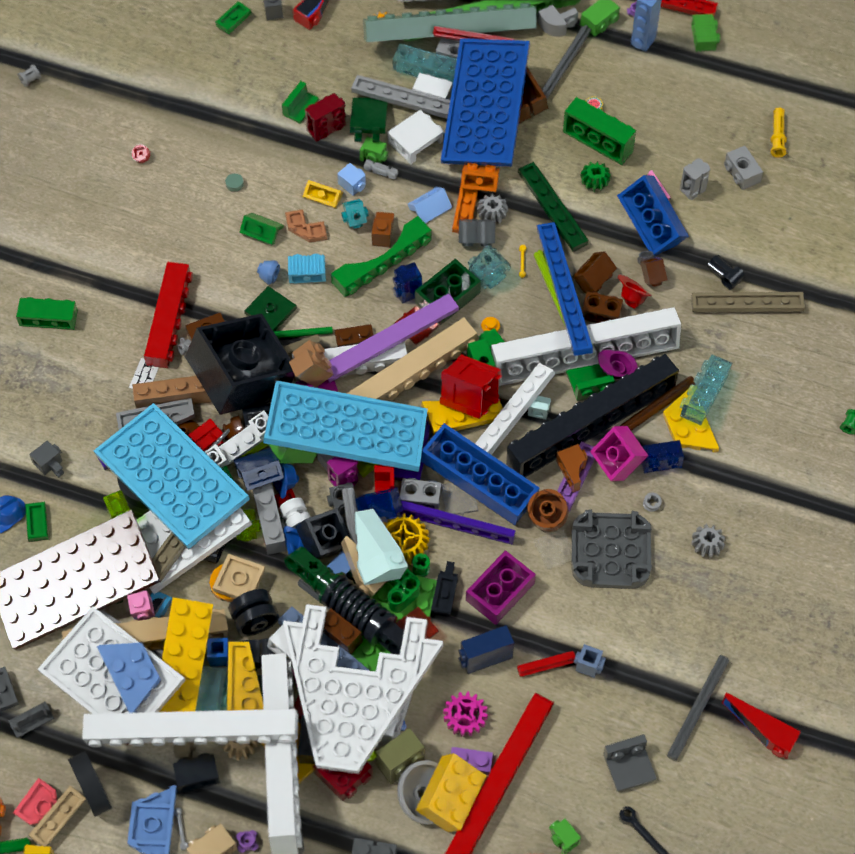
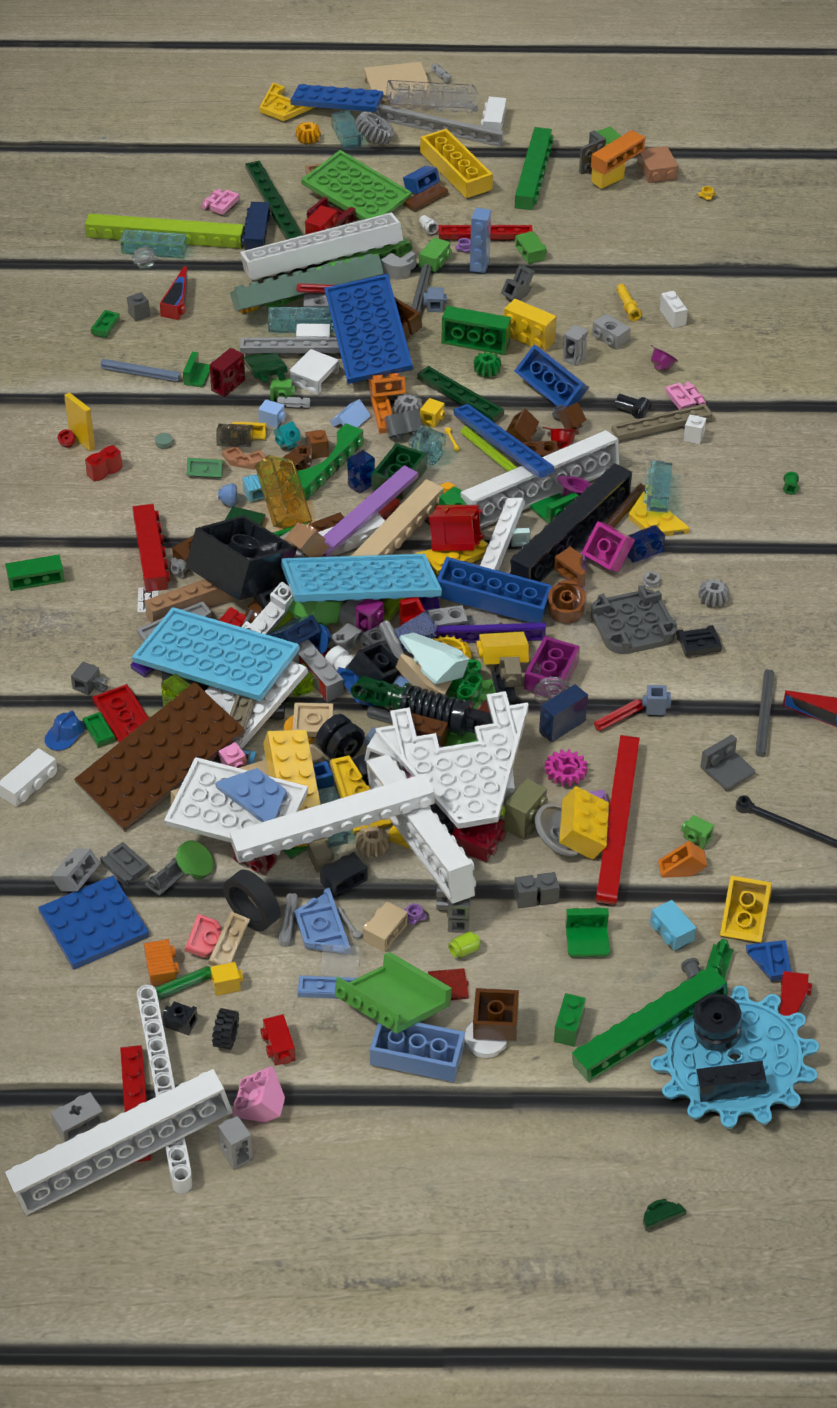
camera: 20 degrees left, 15 degrees down
(61, 711) = (194, 859): none -> bright green tile
(66, 508) = (120, 711): none -> red tile
(124, 807) = (288, 919): none -> light grey axle
(153, 143) = (80, 421): none -> yellow tile
(162, 197) = (103, 463): none -> red brick
(246, 86) = (140, 370): none -> sand blue axle
(303, 198) = (234, 435): none -> clear smoke brick
(313, 486) = (348, 637): none -> light grey piece
(319, 288) = (282, 492): none -> clear yellow slope
(351, 248) = (300, 457): none -> reddish brown piece
(454, 582) = (510, 671): none -> dark tan brick
(460, 548) = (498, 645): none -> yellow brick
(485, 619) = (549, 688): none -> clear tile
(513, 223) = (432, 412): none -> yellow brick
(576, 75) = (435, 299): none -> sand blue brick
(658, 139) = (531, 324): none -> yellow brick
(668, 601) = (699, 641): none -> black plate
(671, 82) = (519, 286): none -> dark grey brick
(777, 322) = (694, 429): none -> white brick
(782, 217) = (662, 359): none -> magenta piece
(782, 276) = (684, 396): none -> bright pink plate
(822, 156) = (673, 309): none -> white brick

